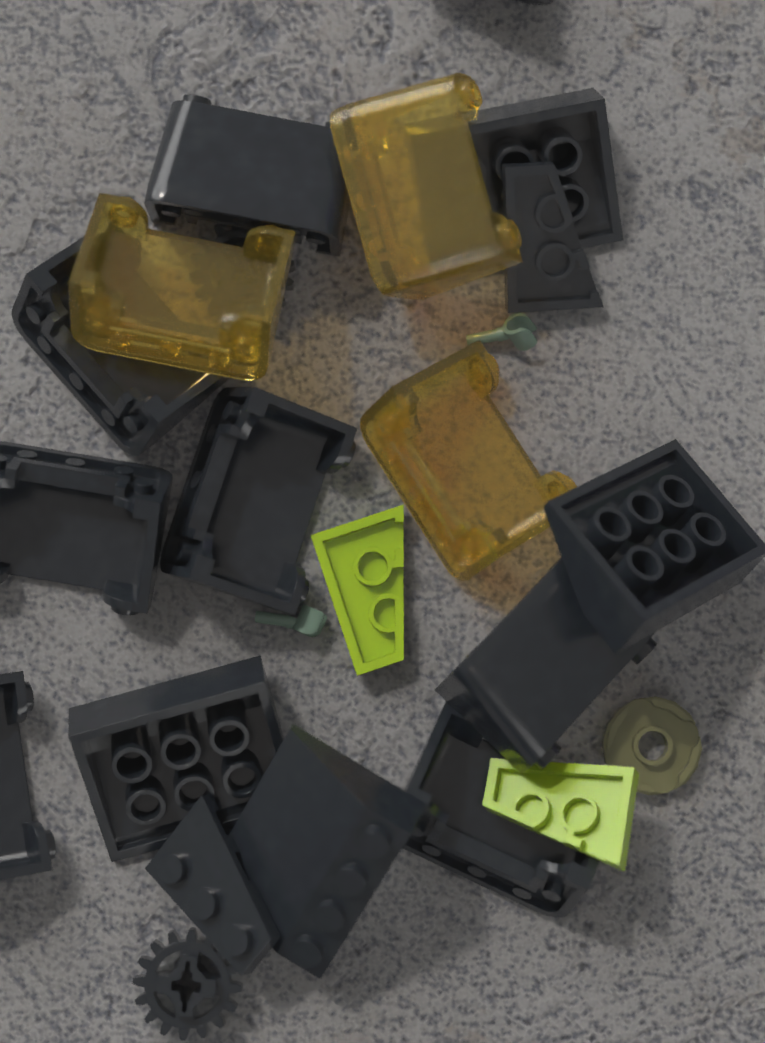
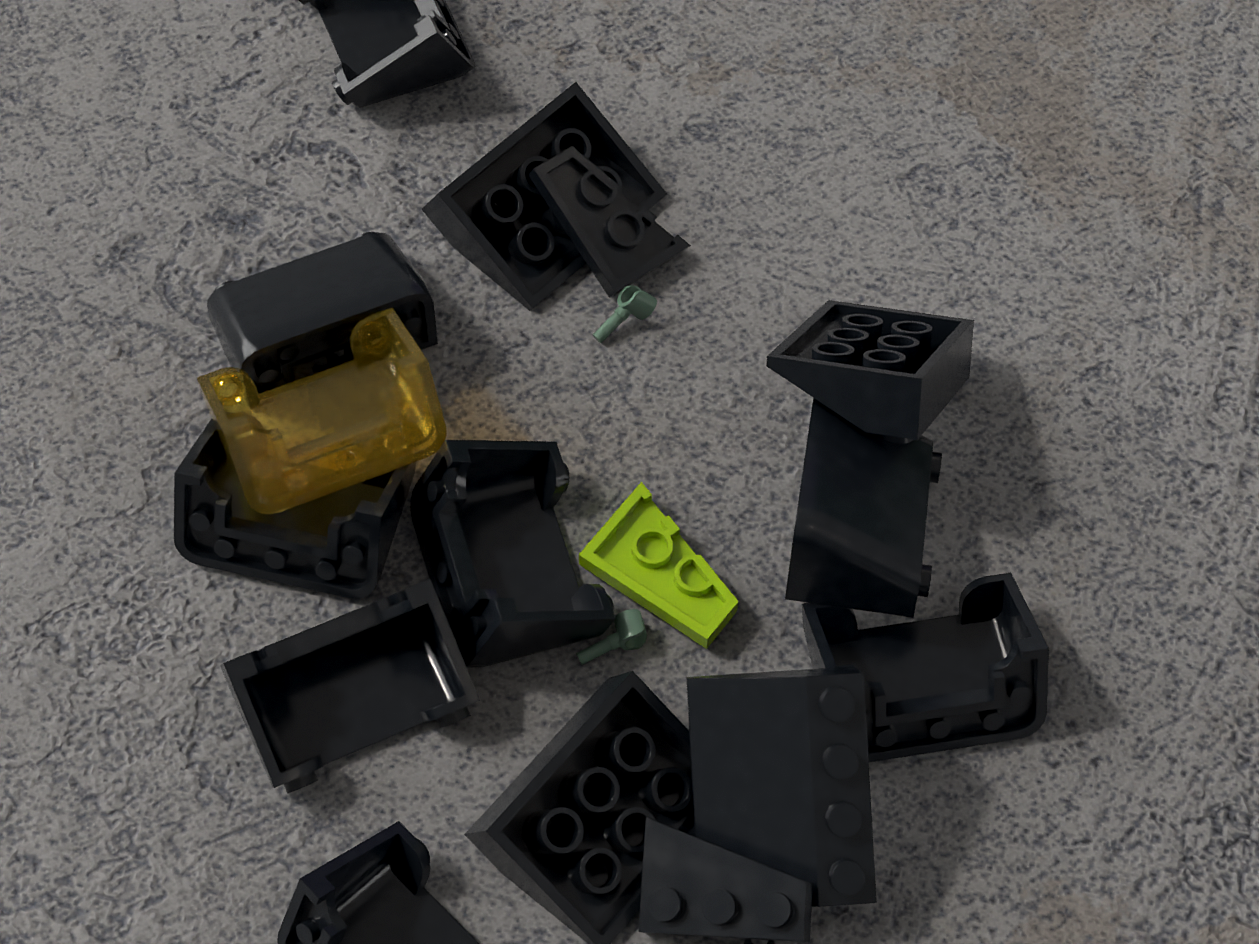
camera: 30 degrees left, 25 degrees down
(421, 189) = (480, 228): clear yellow windscreen -> none
(460, 462) = (663, 429): clear yellow windscreen -> none
(568, 803) = (971, 609): lime wing -> none
(680, 737) = (1005, 517): olive tile -> none

